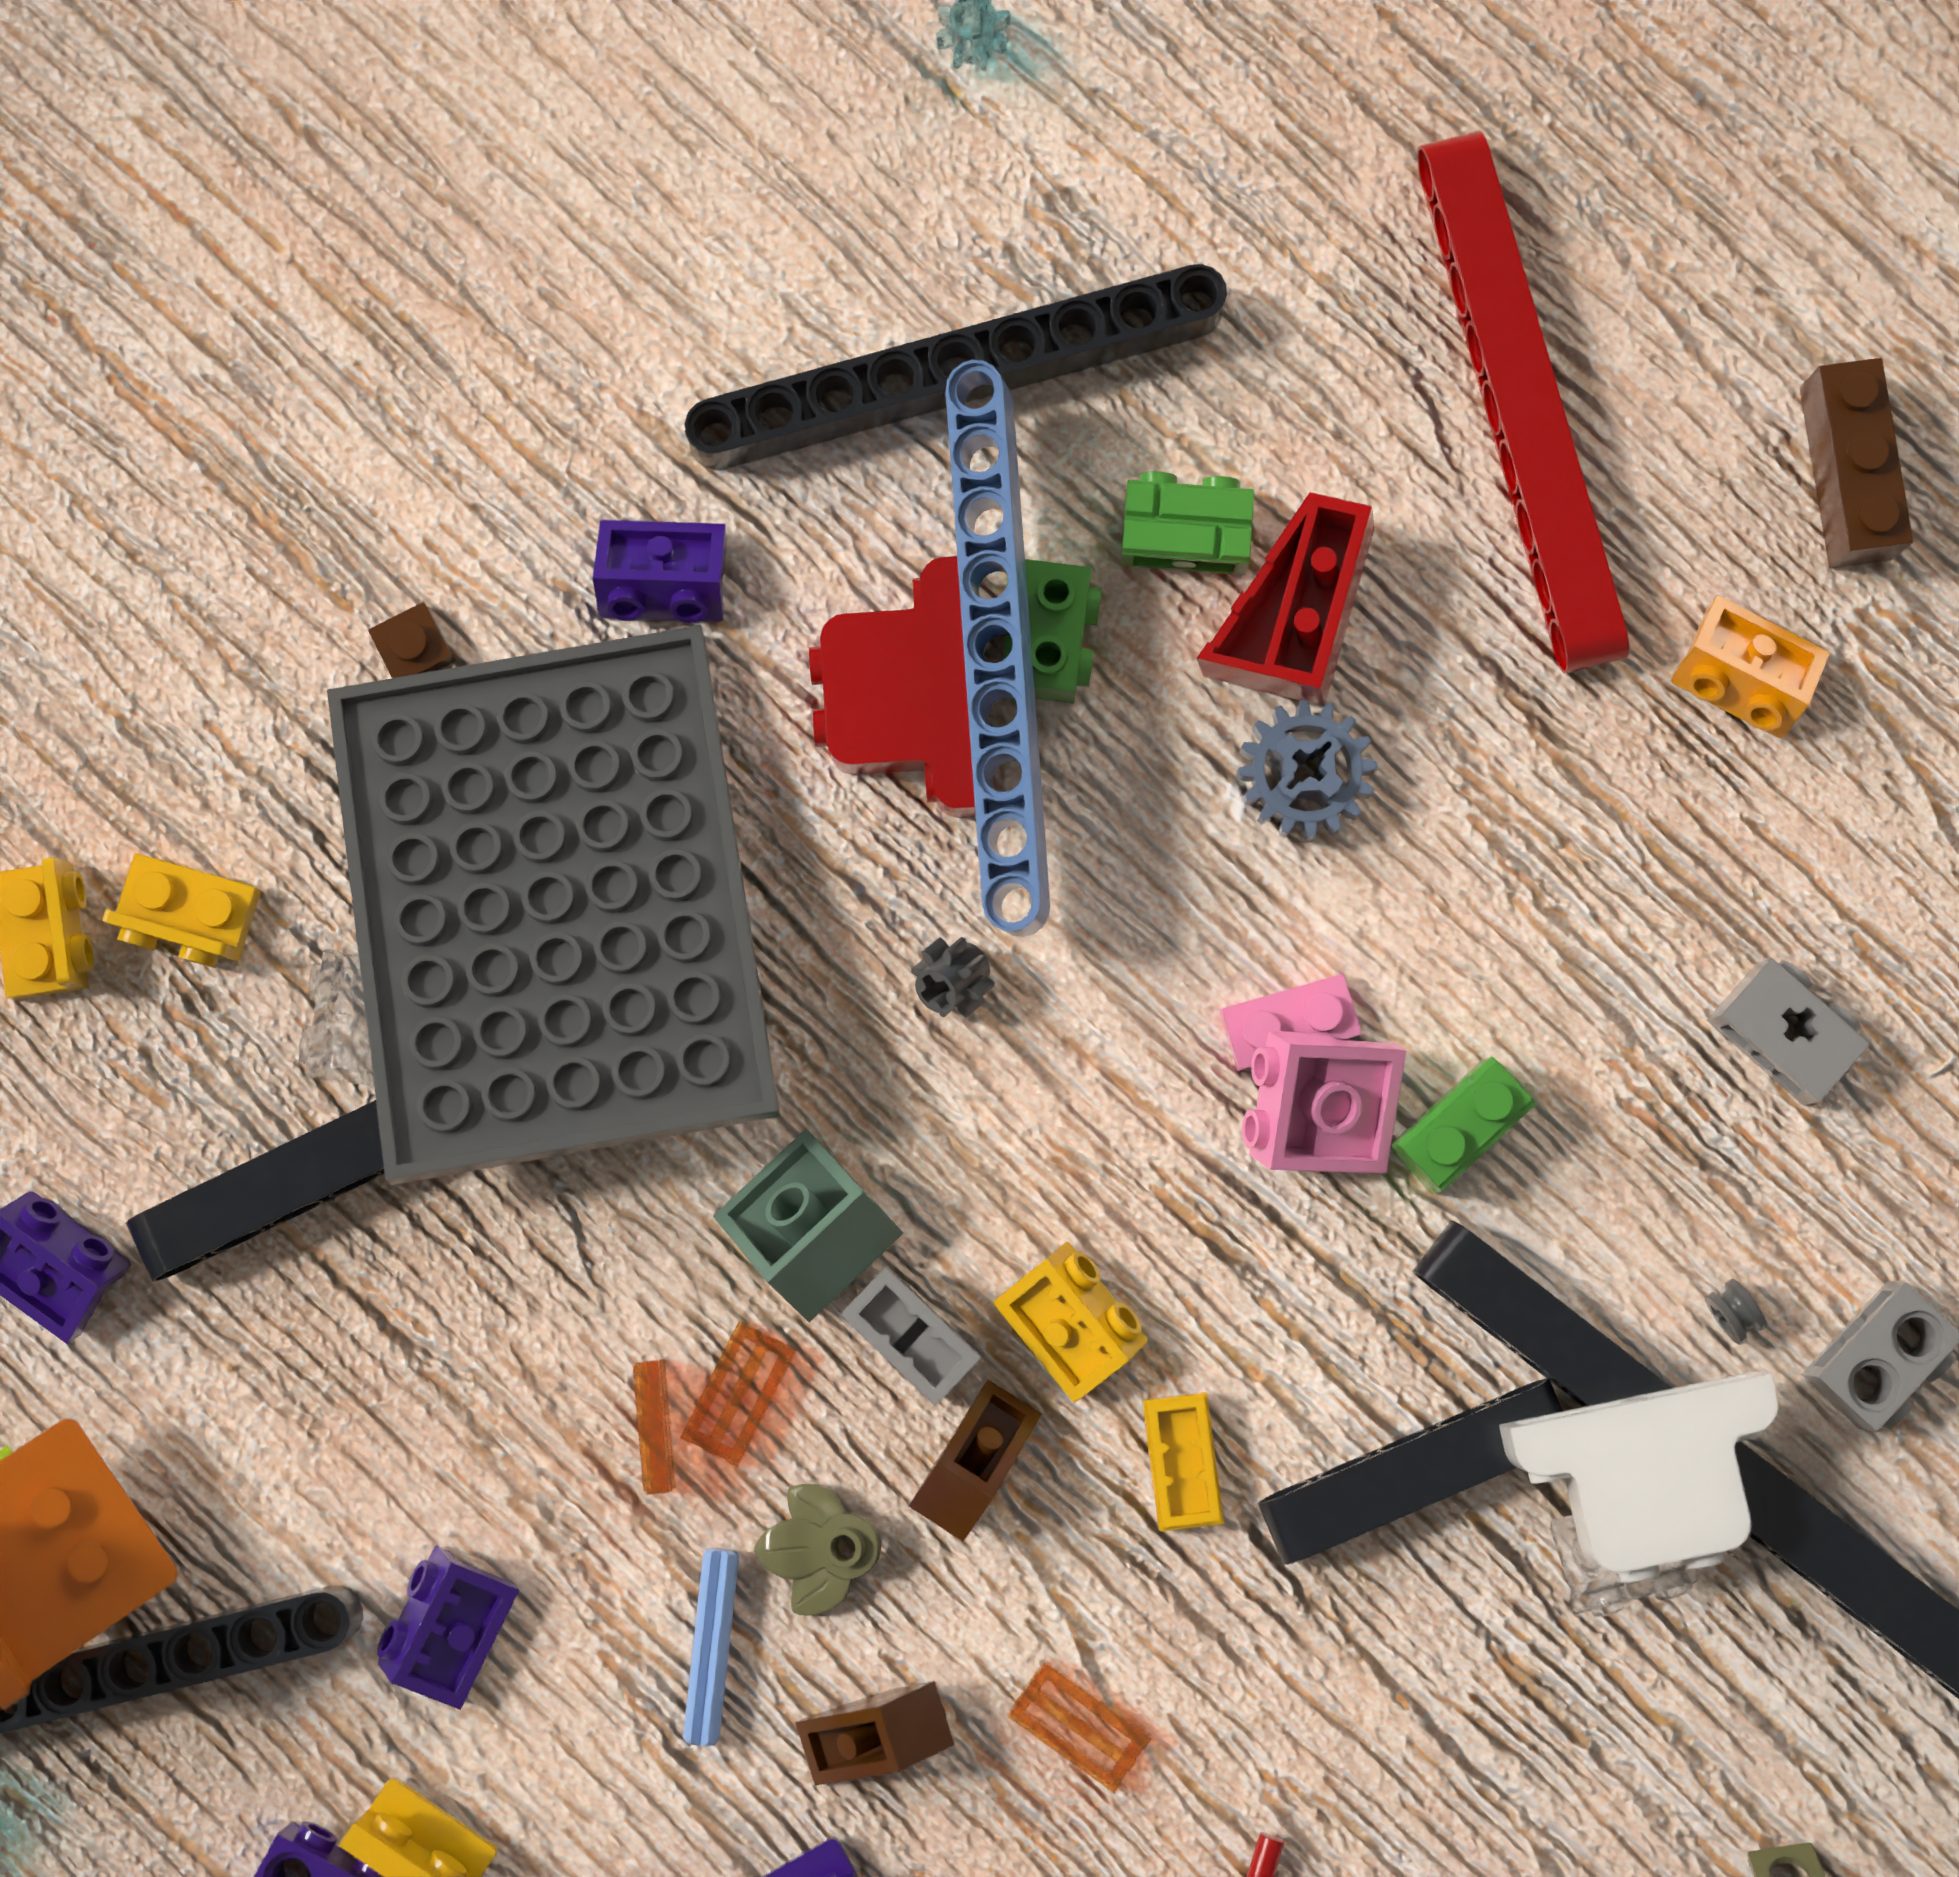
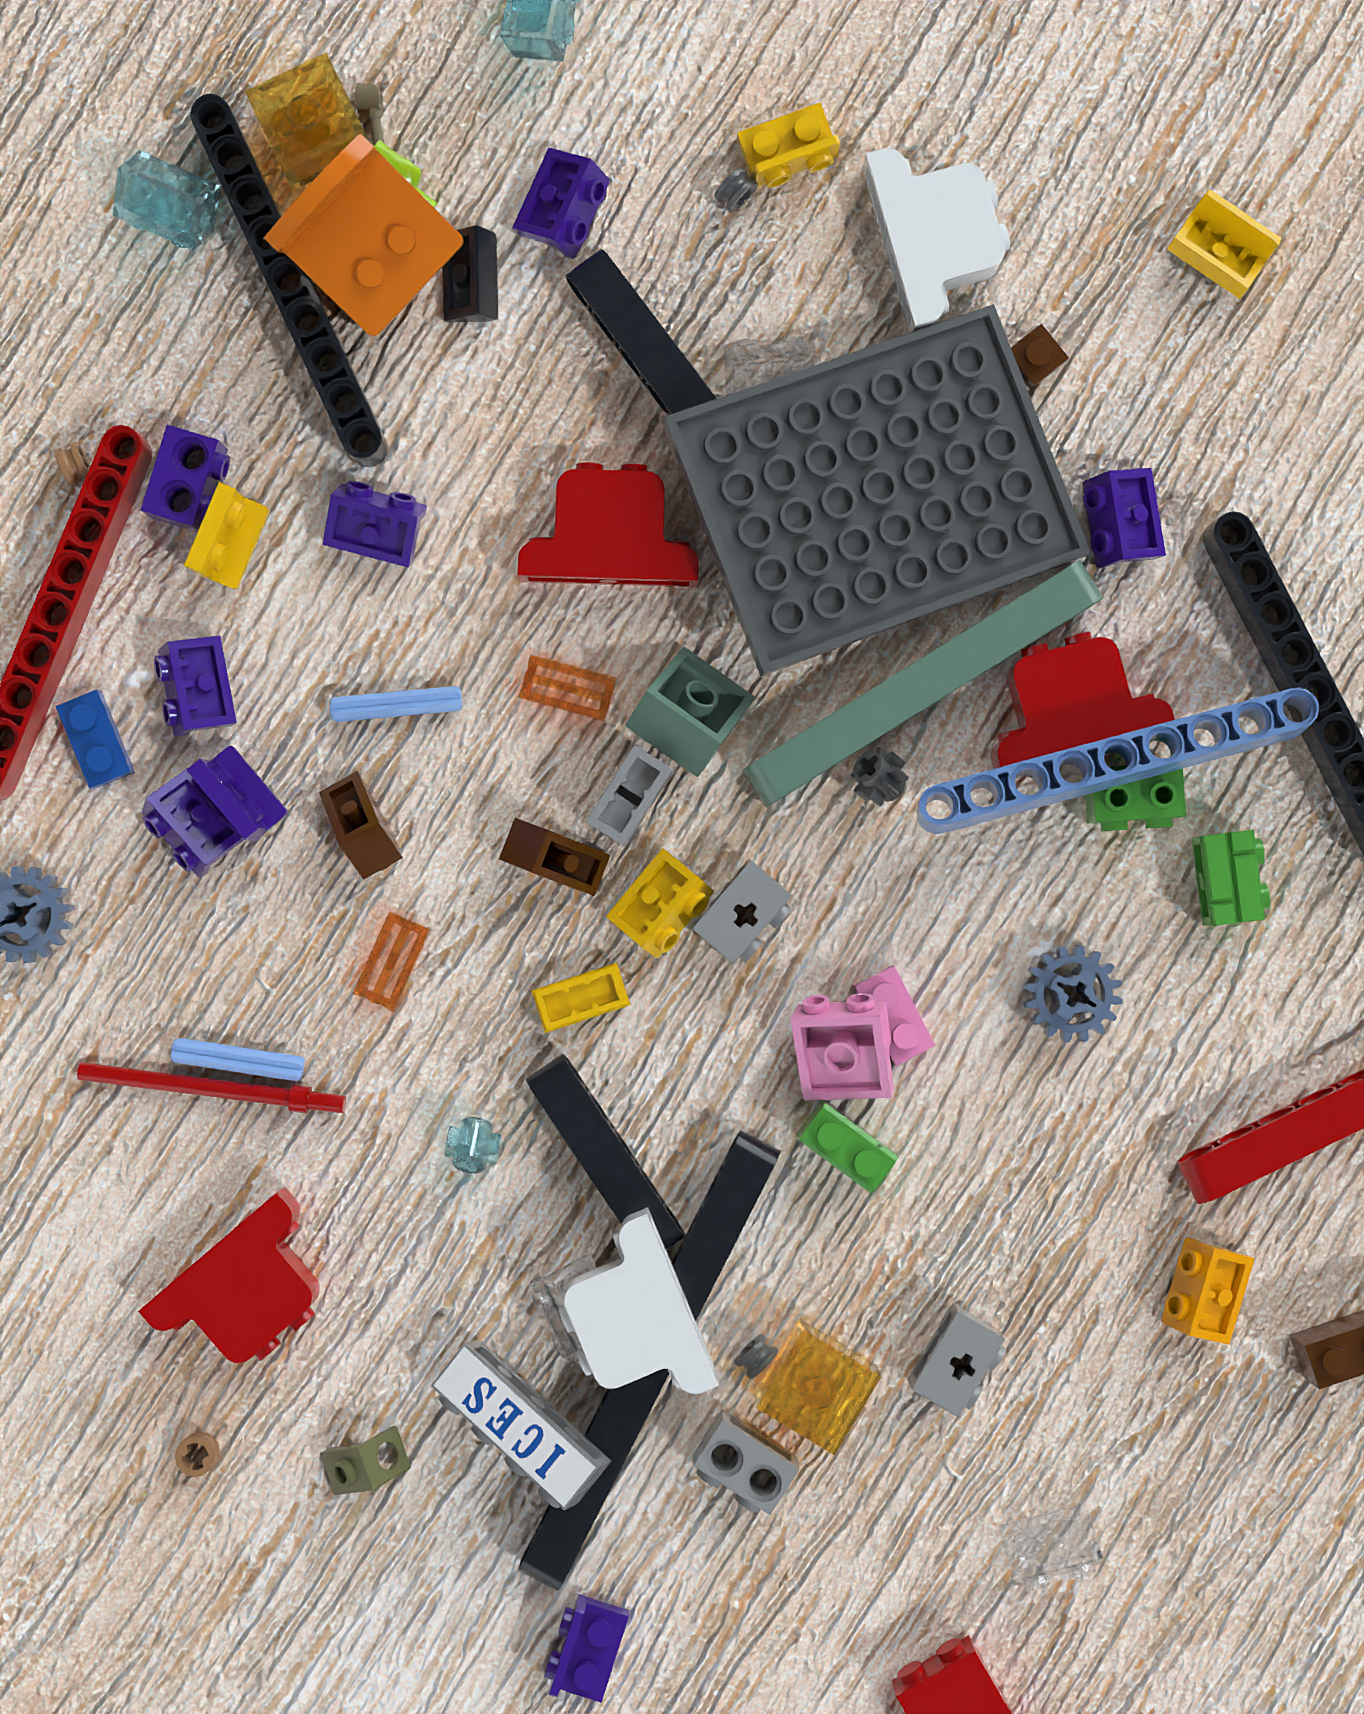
camera: 80 degrees right, 5 degrees up
(86, 1015) = (736, 190): none -> dark grey bush
(126, 1415) = (472, 278): none -> black slope
(184, 908) = (823, 240): yellow bracket -> none
(206, 751) = (934, 230): none -> white brick
(313, 361) = (1224, 243): none -> yellow bracket
(531, 1291) = (609, 533): none -> red brick
(654, 1426) = (534, 635): clear orange tile -> none
(809, 1551) = (472, 756): olive plate -> none
(836, 894) = (923, 683): none -> sand green beam
(1113, 1244) = (748, 887): none -> light grey brick
(1298, 606) = (1186, 966): red wedge -> none
(1365, 1660) = (472, 1145): none -> clear light blue gear
(1778, 1671) = (520, 1425): none -> brick
(1793, 1233) = (817, 1387): none -> clear yellow brick

